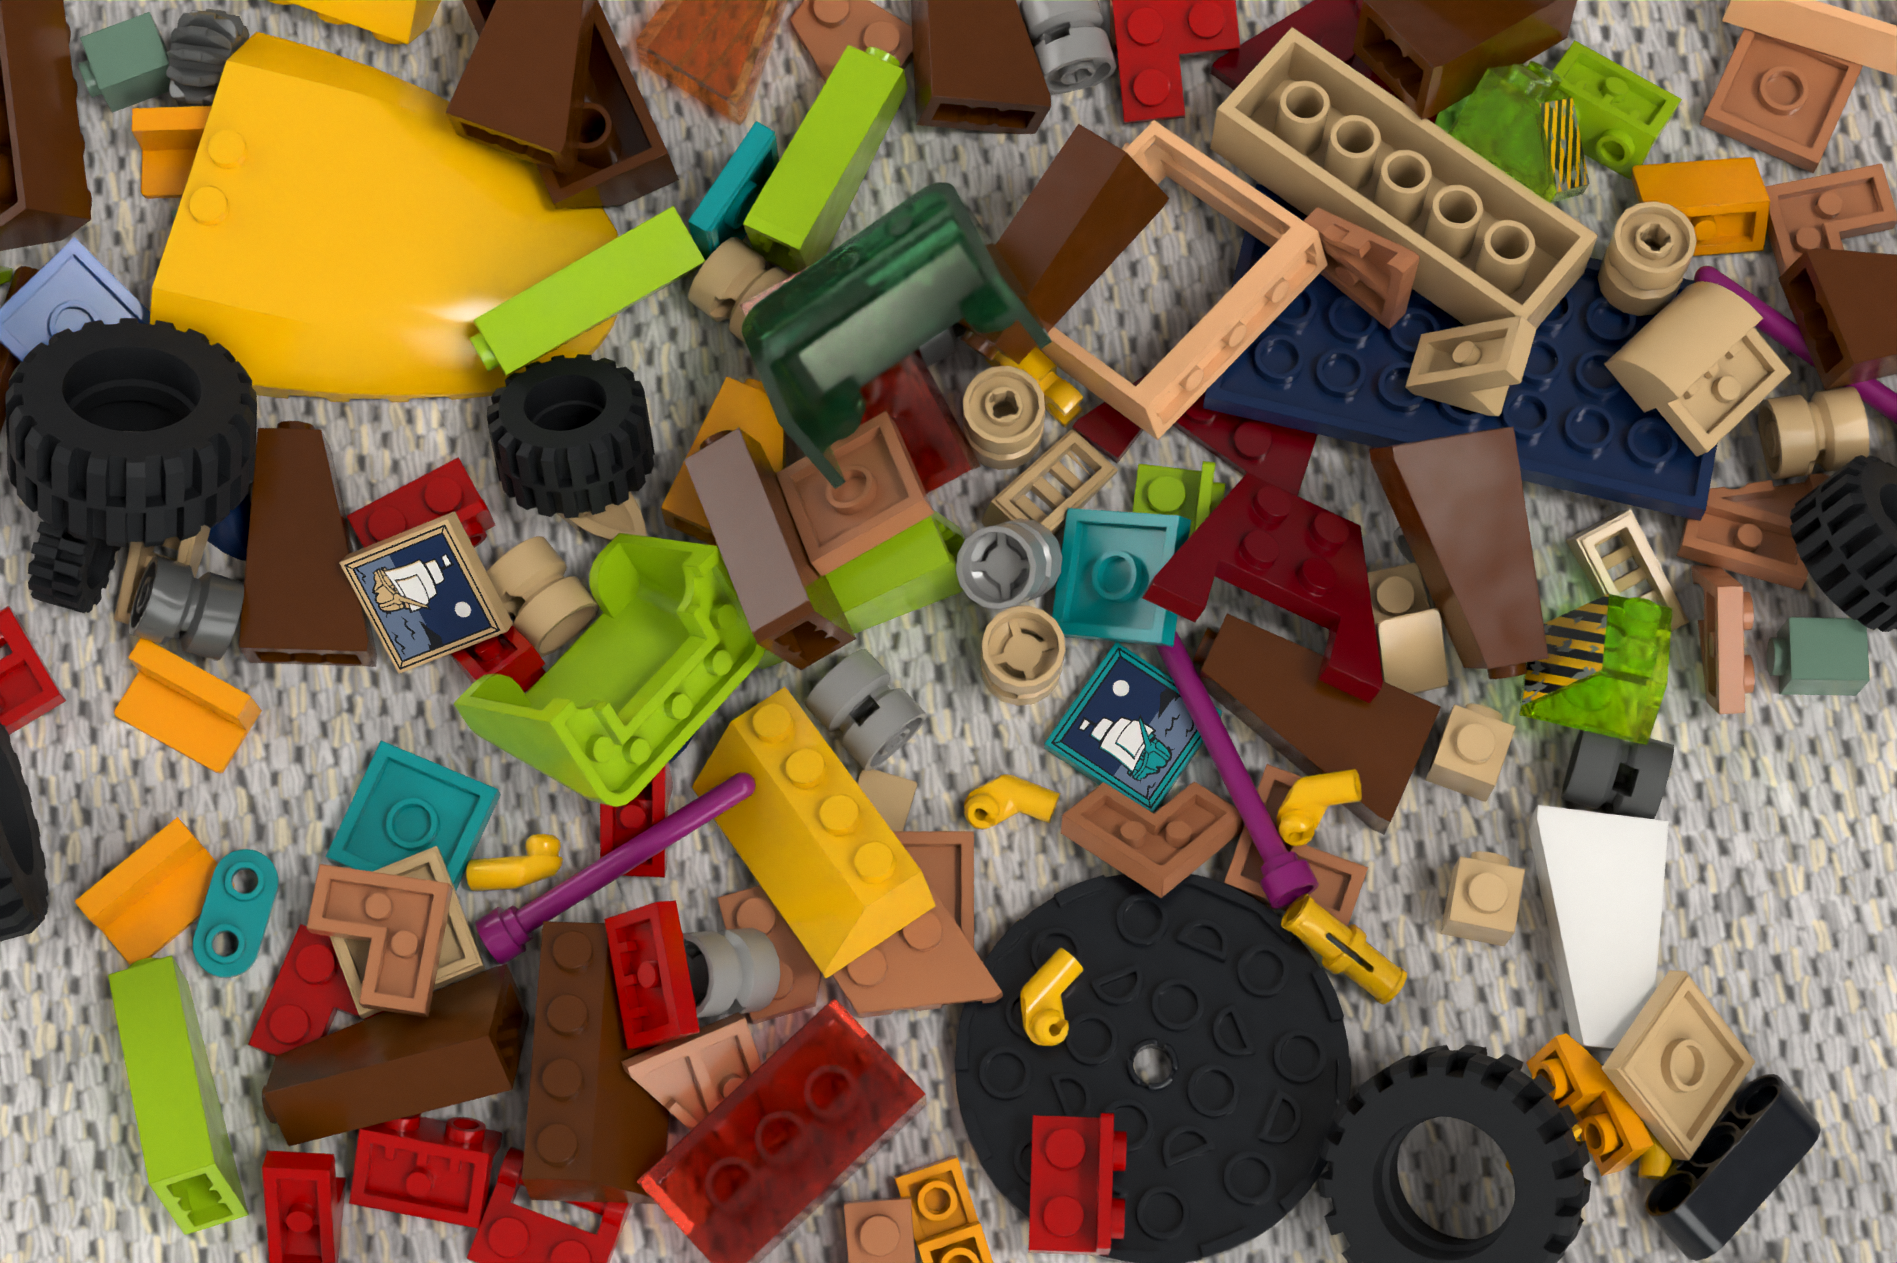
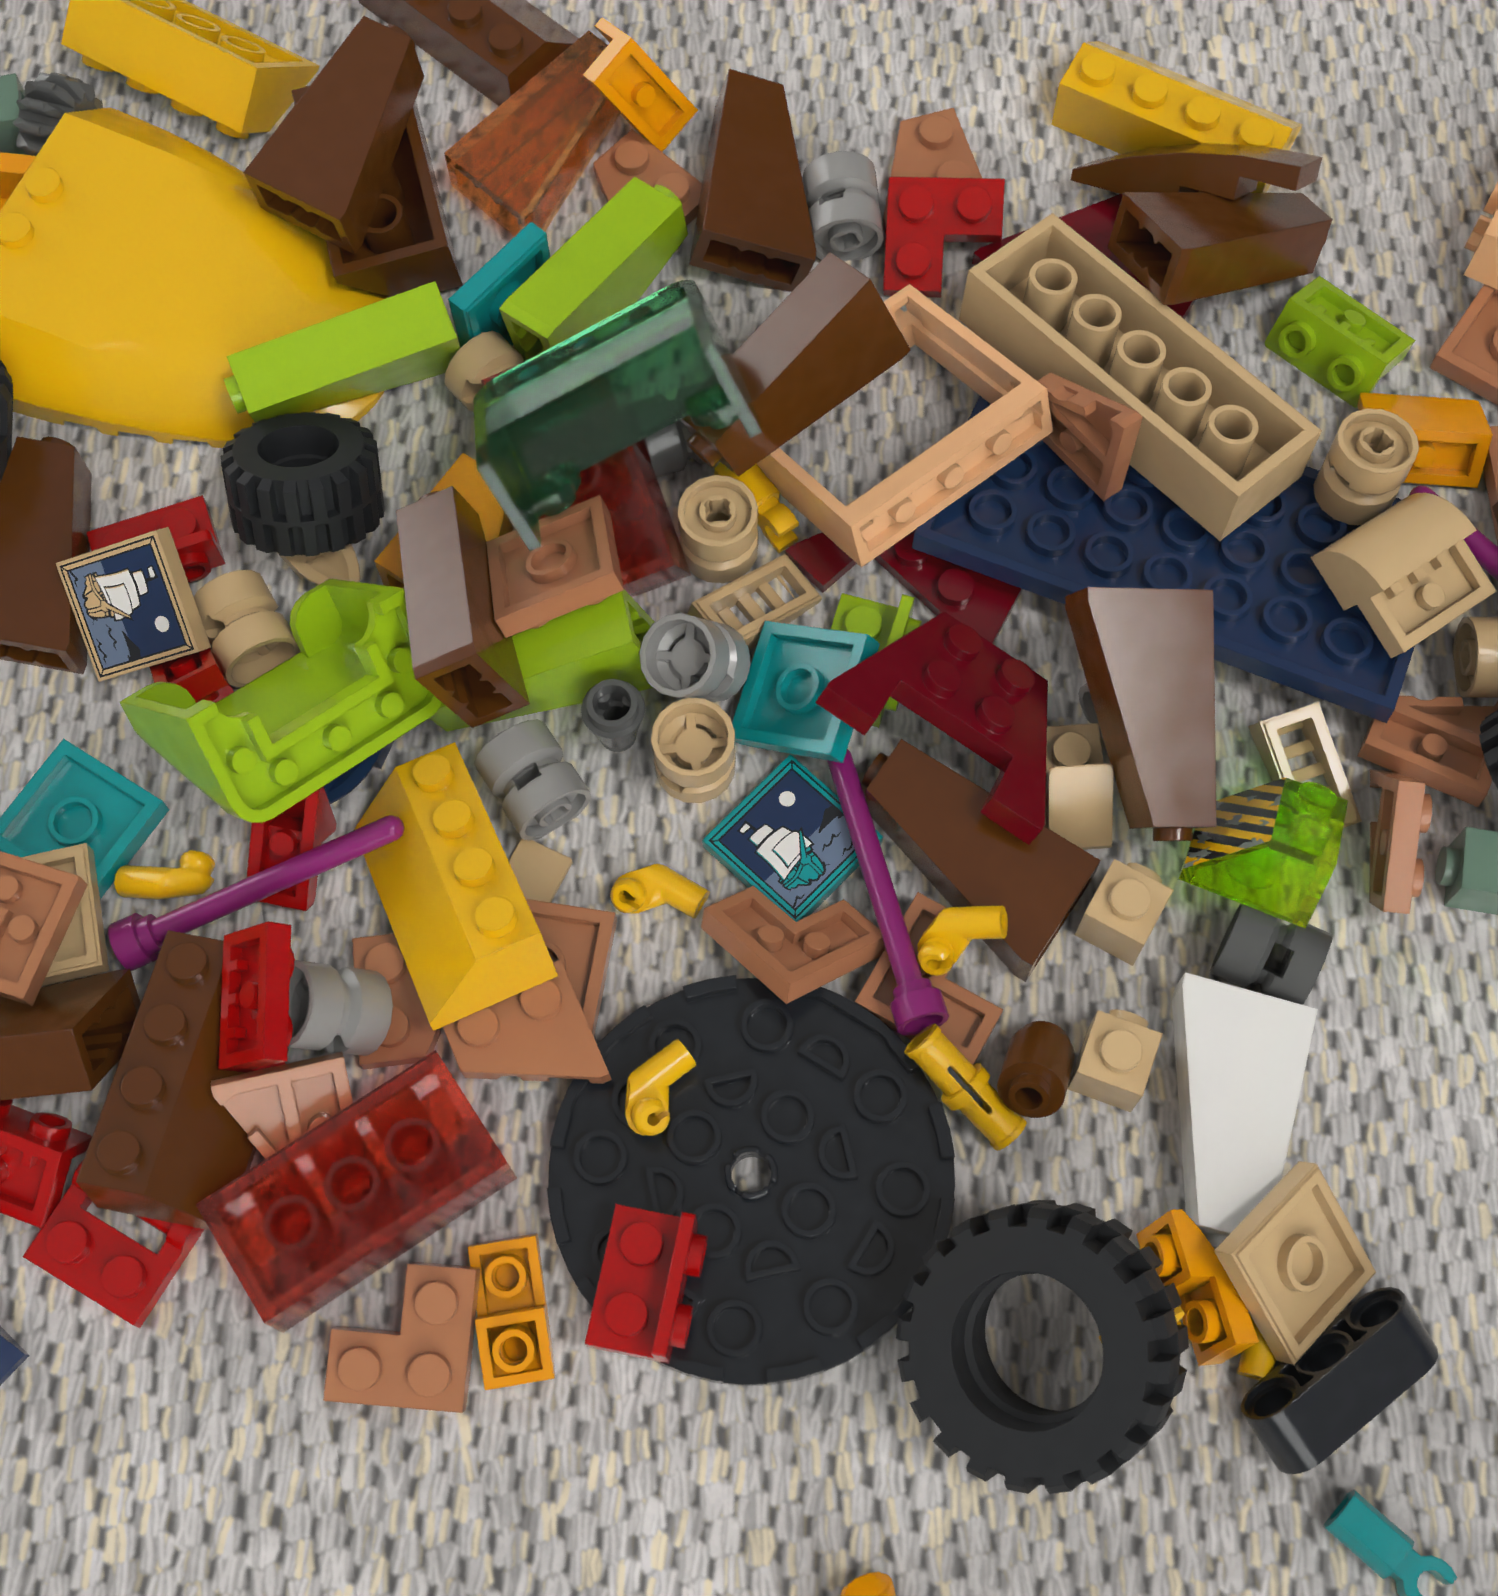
camera: 10 degrees right, 5 degrees down
(931, 617) = (613, 713): none -> dark grey cone
(1409, 921) = (1036, 1070): none -> reddish brown brick
(1472, 364) = (1181, 537): tan slope -> none
(1526, 129) = (1263, 330): clear neon green slope -> none

